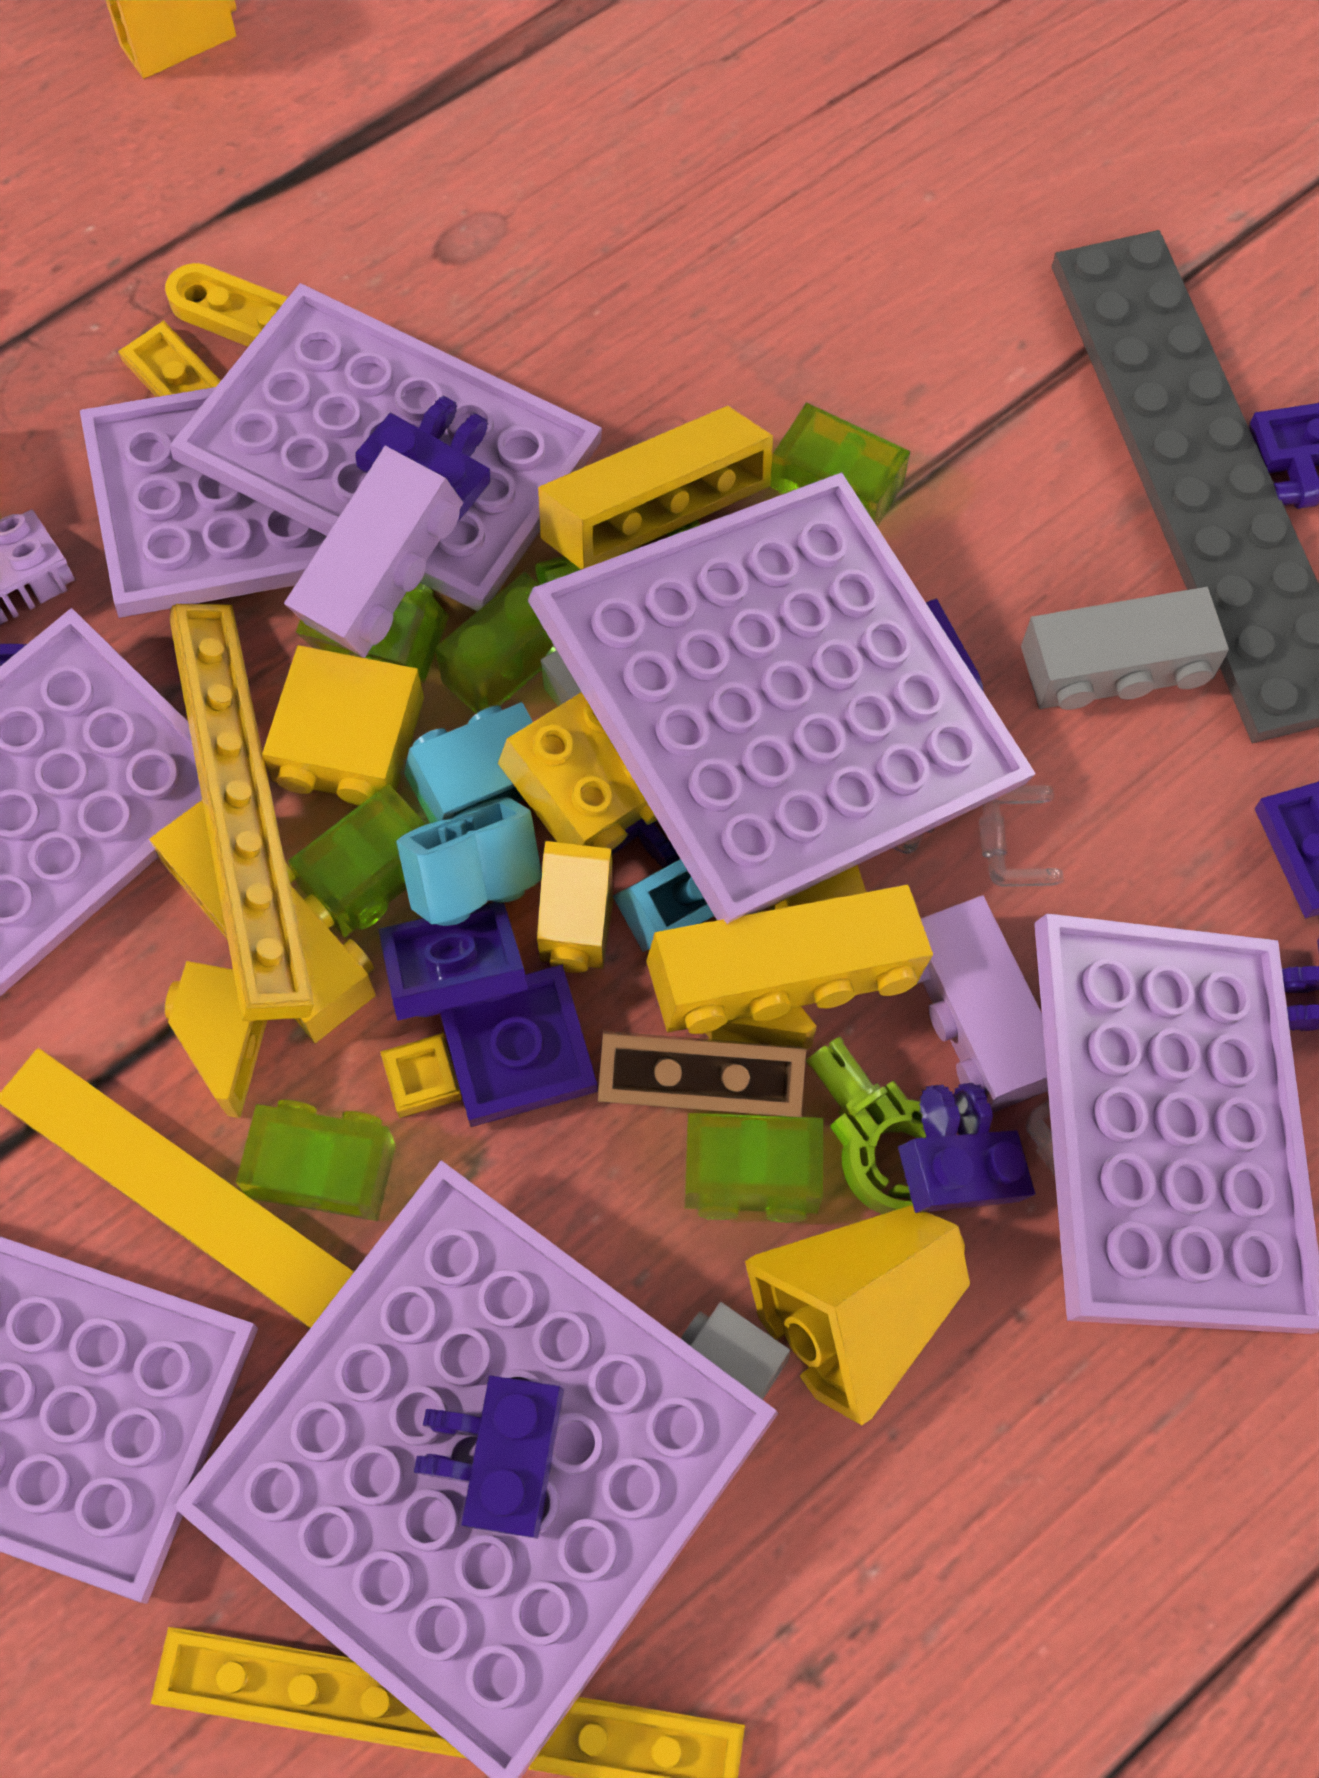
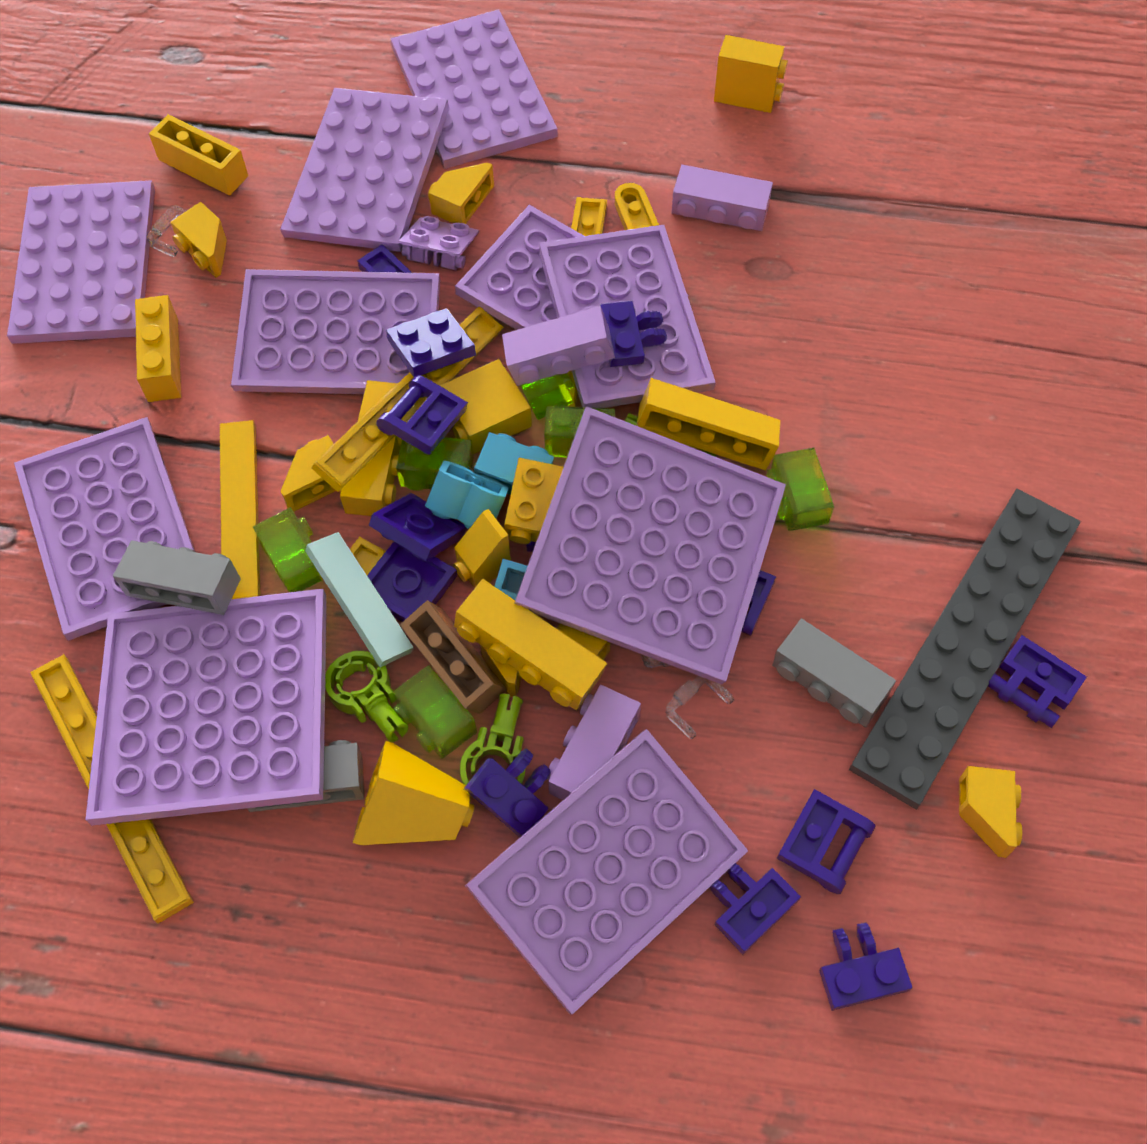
camera: 50 degrees right, 5 degrees down
(182, 707) = (430, 342): none -> plate
(222, 1352) = (177, 576): none -> light grey brick
(315, 192) = (721, 197): none -> lavender brick
(319, 799) = (430, 421): none -> dark purple plate
(495, 1125) = (359, 599): none -> light aqua tile
(509, 1457) = (218, 710): dark purple hinge -> none
(656, 1212) = (370, 697): none -> lime pin

